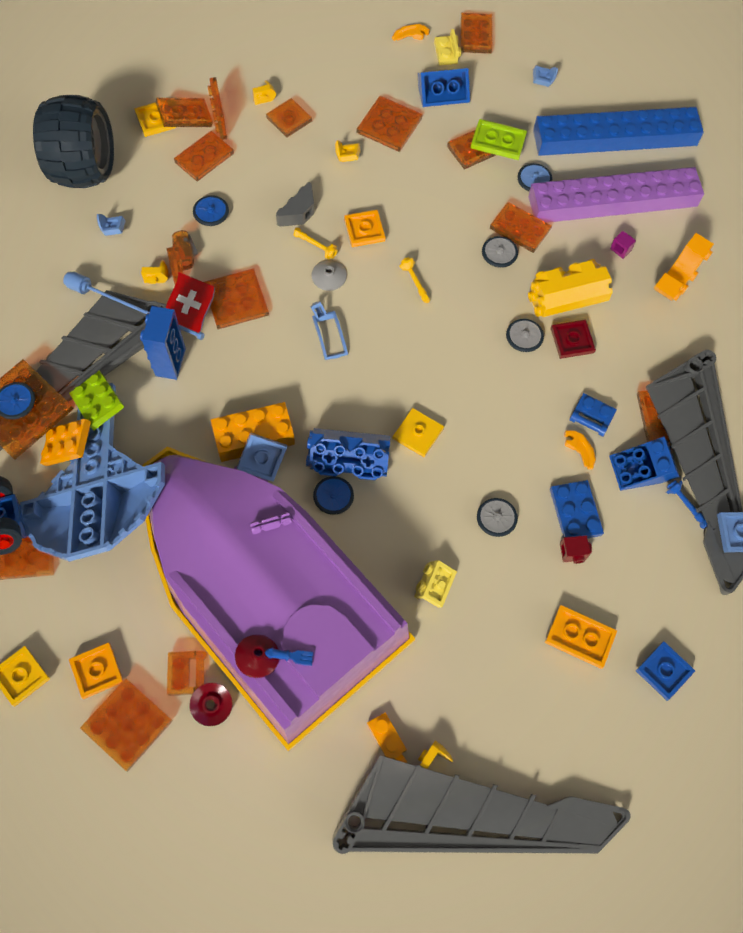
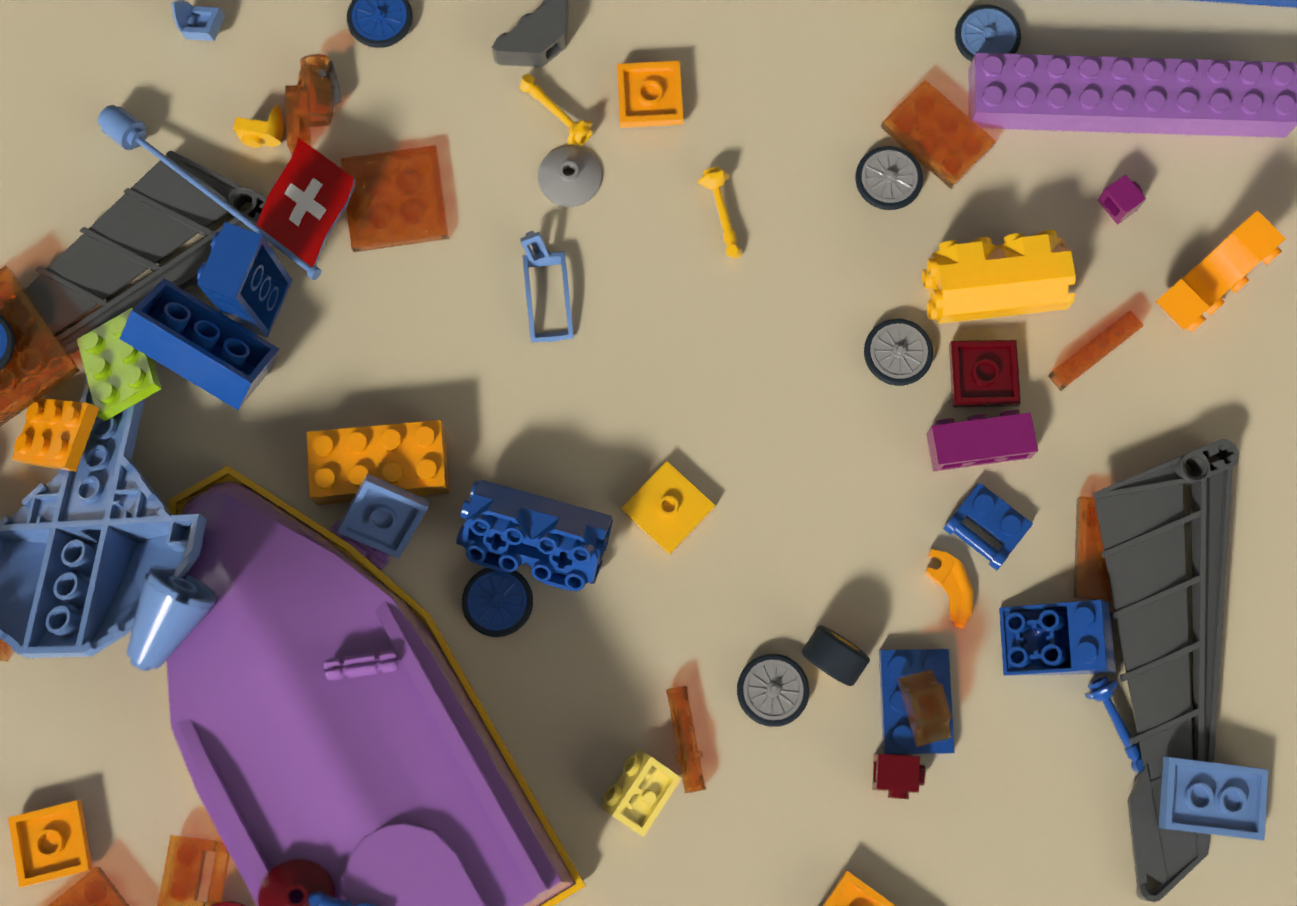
camera: 15 degrees right, 10 degrees up
(141, 381) = (199, 343): none -> blue brick
(152, 517) = (166, 615): none -> medium blue cone
(458, 559) = (686, 741): none -> clear orange pin
(528, 491) = (835, 655): none -> black wheel
(579, 372) = (981, 440): none -> magenta brick
(585, 508) = (925, 707): none -> clear orange brick
(627, 319) = (1095, 350): none -> clear orange piece

